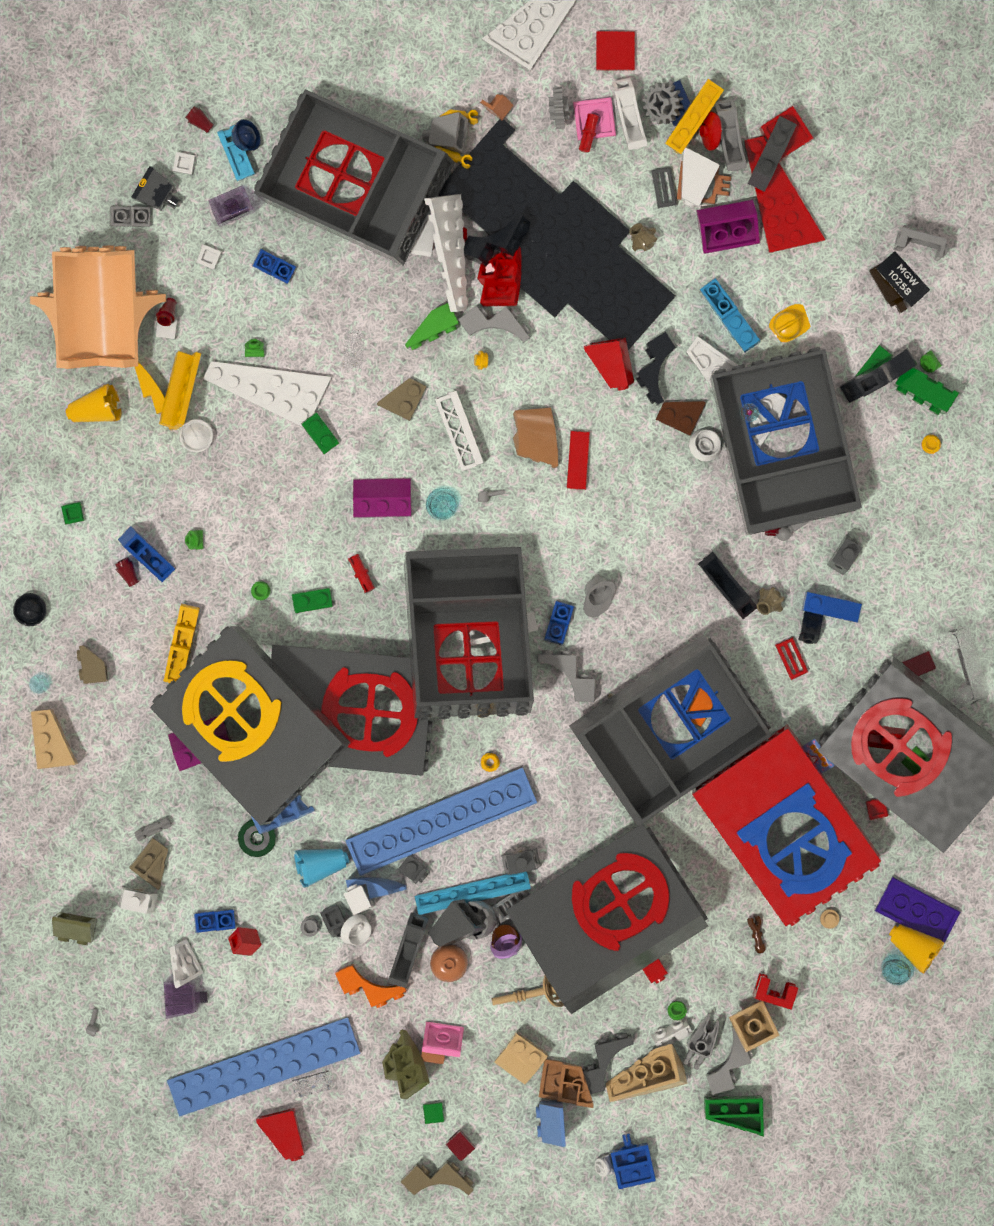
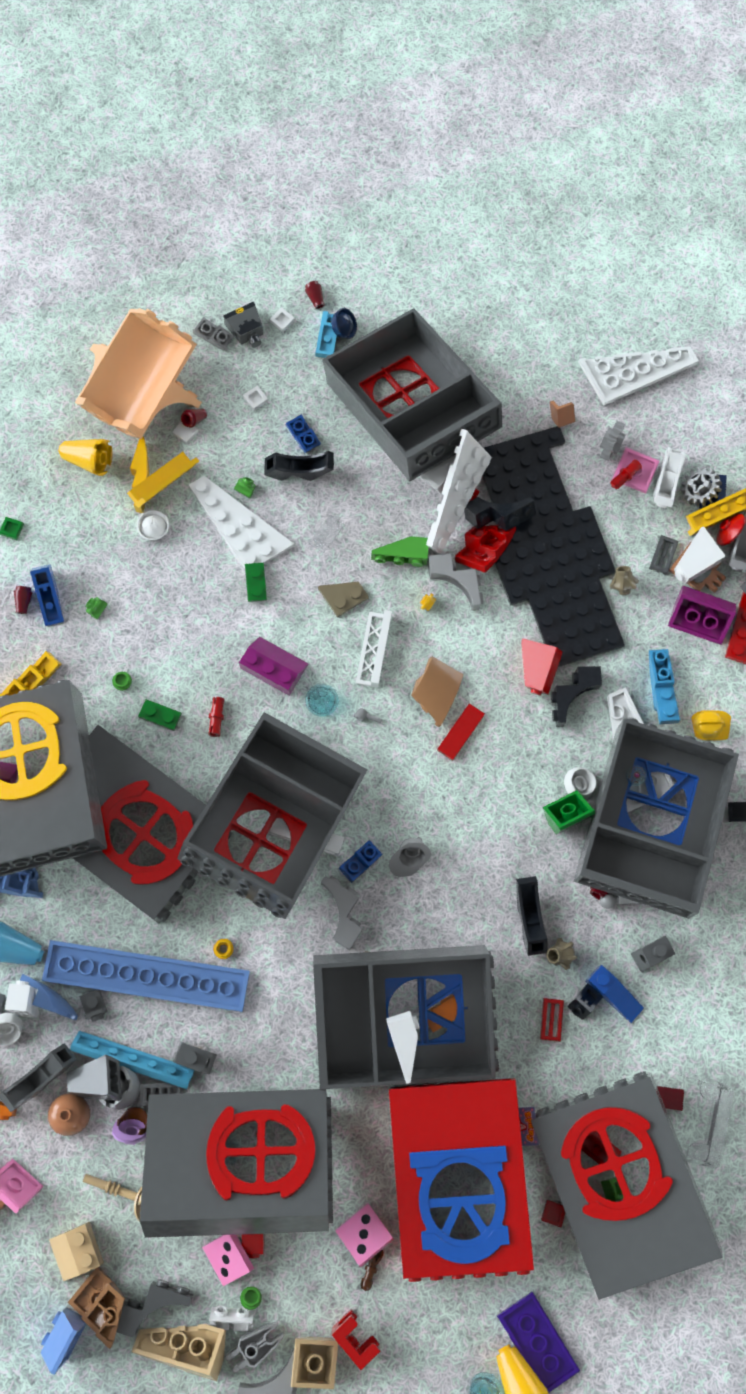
camera: 30 degrees right, 15 degrees down
(231, 206) = (298, 372): clear purple slope -> none
(291, 303) = (305, 467): none -> black arch
(450, 132) = (514, 410): light grey torso -> none
(615, 50) = (683, 429): red tile -> none
(642, 992) = (228, 1258): none -> bright pink tile
(681, 415) = (572, 746): reddish brown wing -> none
(681, 748) = (404, 1036): none -> white slope
(708, 479) = (567, 812): none -> green slope
(737, 913) = (364, 1235): none -> bright pink tile
(829, 918) = (449, 1297): tan plate -> none

